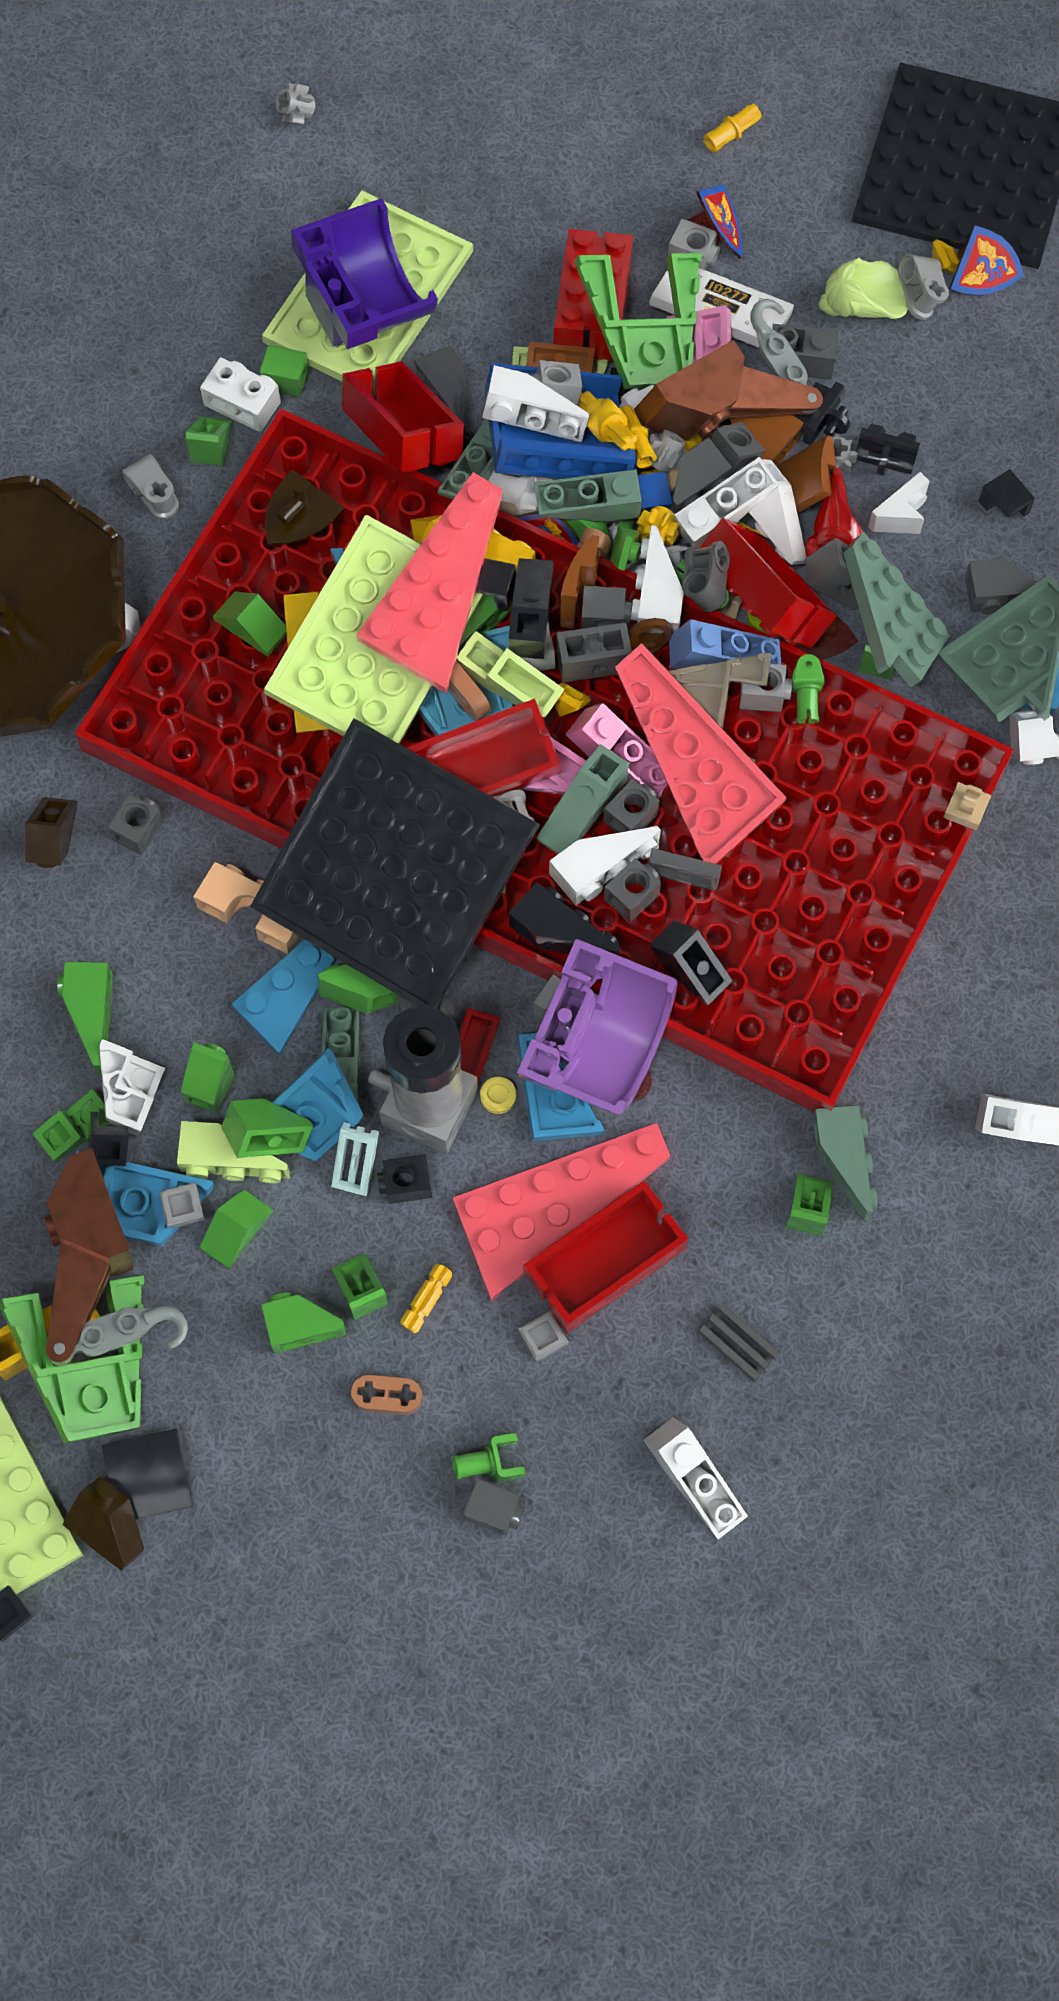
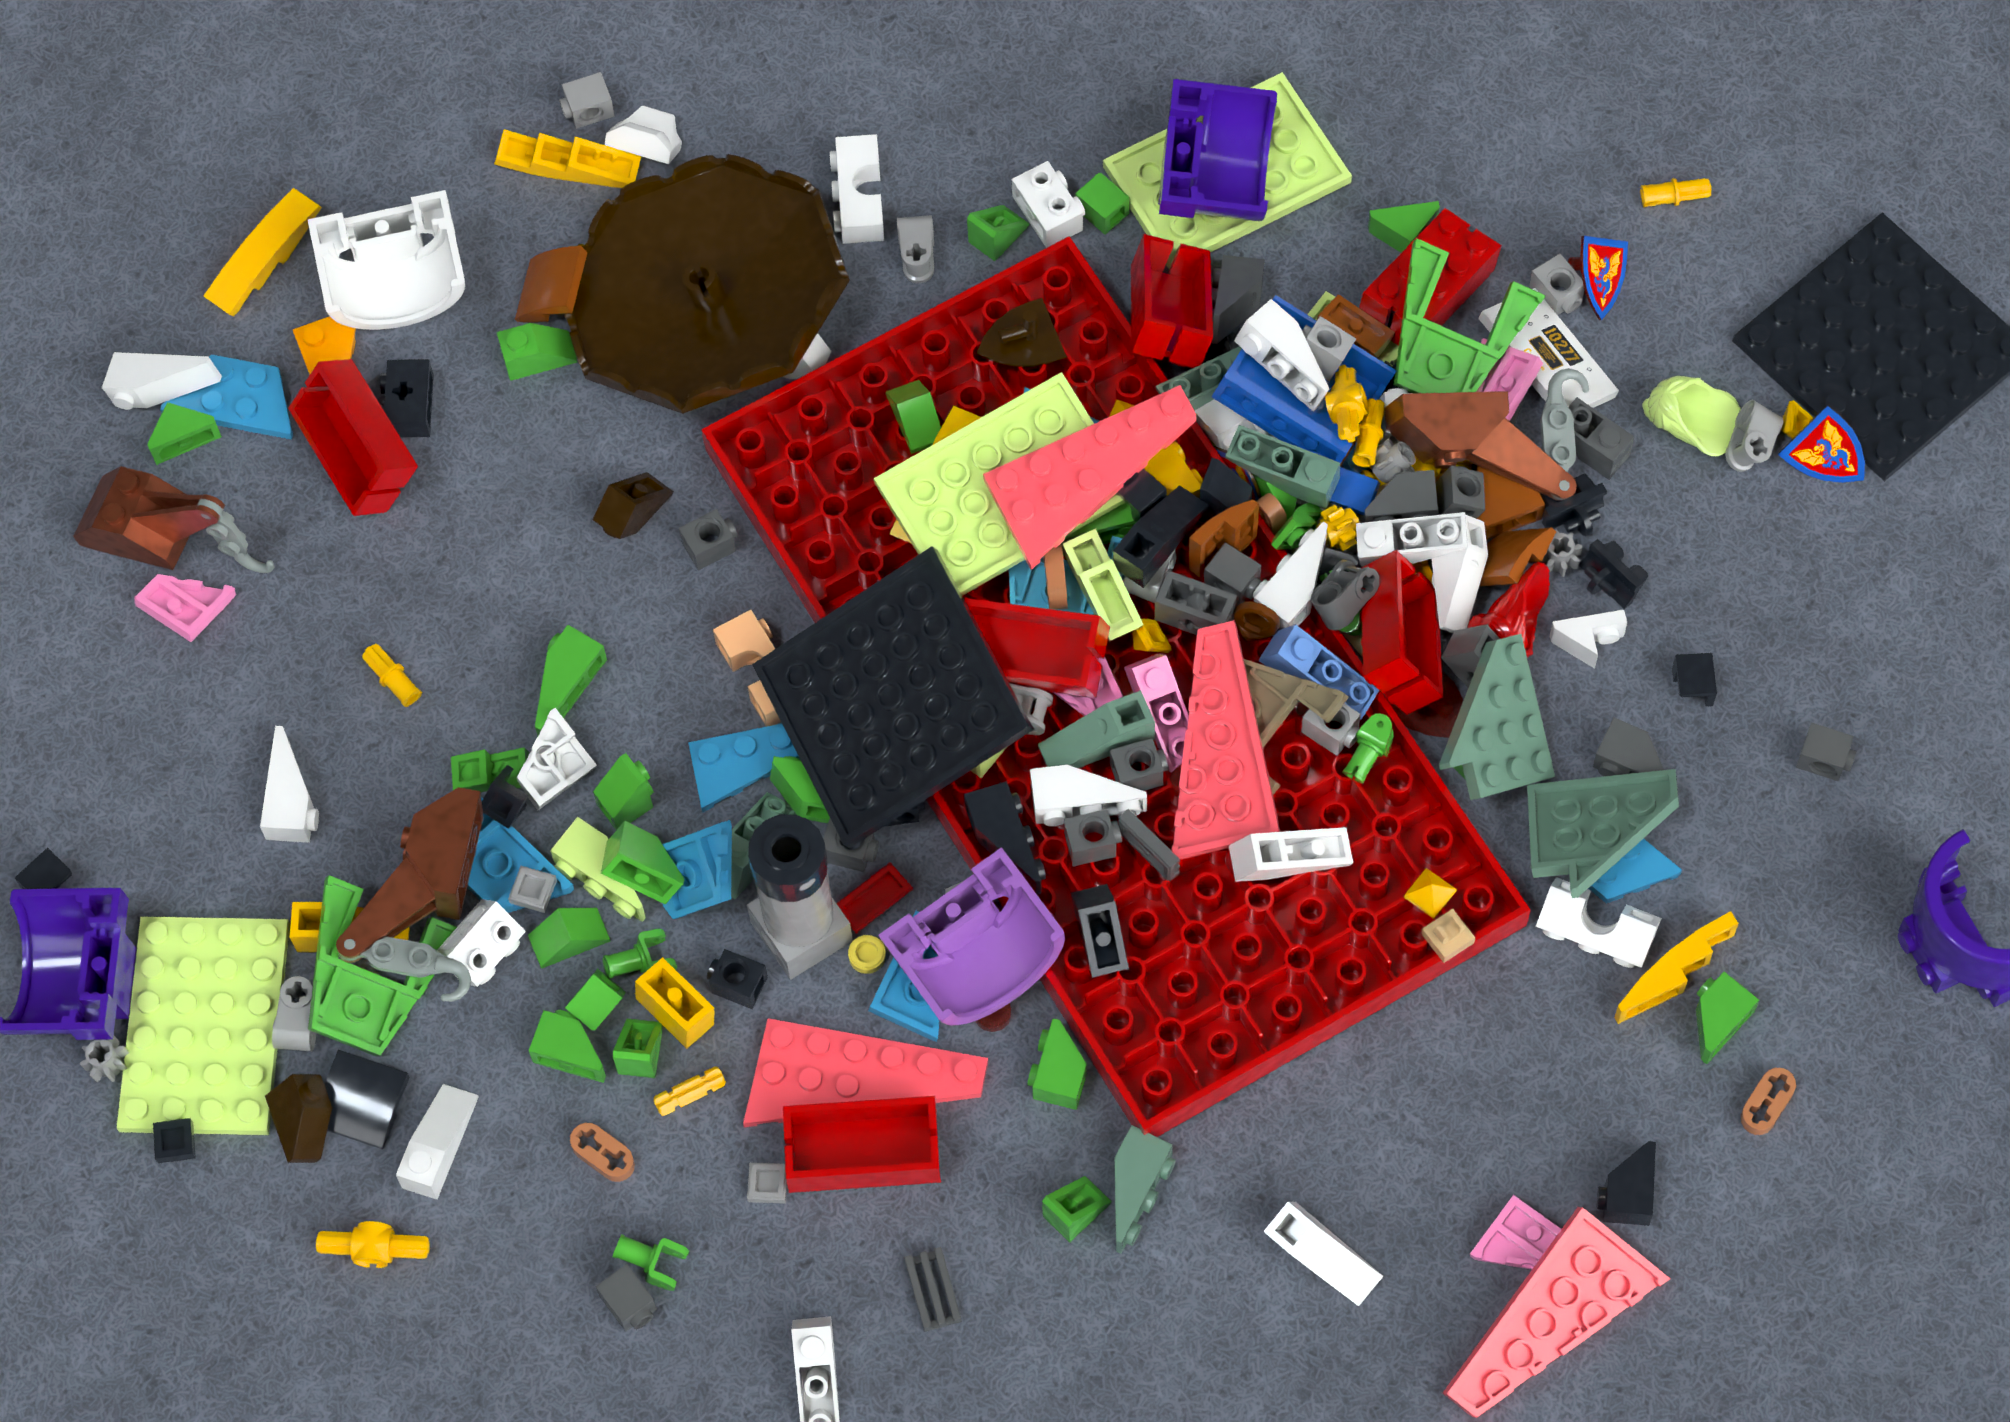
camera: 35 degrees right, 5 degrees down
(44, 1442) = (292, 1018): none -> light grey piece
(55, 444) = (859, 214): none -> white arch
(166, 1274) = (483, 940): none -> white brick
(238, 1471) = (436, 1142): none -> white slope
(240, 1596) = (372, 1244): none -> yellow axle
(297, 1268) = (595, 1000): none -> bright green panel
(310, 1211) = (636, 958): none -> bright green piece
(359, 1137) = (715, 918): light aqua tile -> none
(368, 1231) = (674, 1003): none -> yellow brick
(539, 263) = (1401, 224): none -> bright green slope
(556, 544) = (1222, 489): none -> black slope
(724, 1097) = (1061, 1069): none -> bright green slope
(801, 811) = (1289, 853): none -> white slope
(929, 780) = (1430, 893): none -> yellow slope

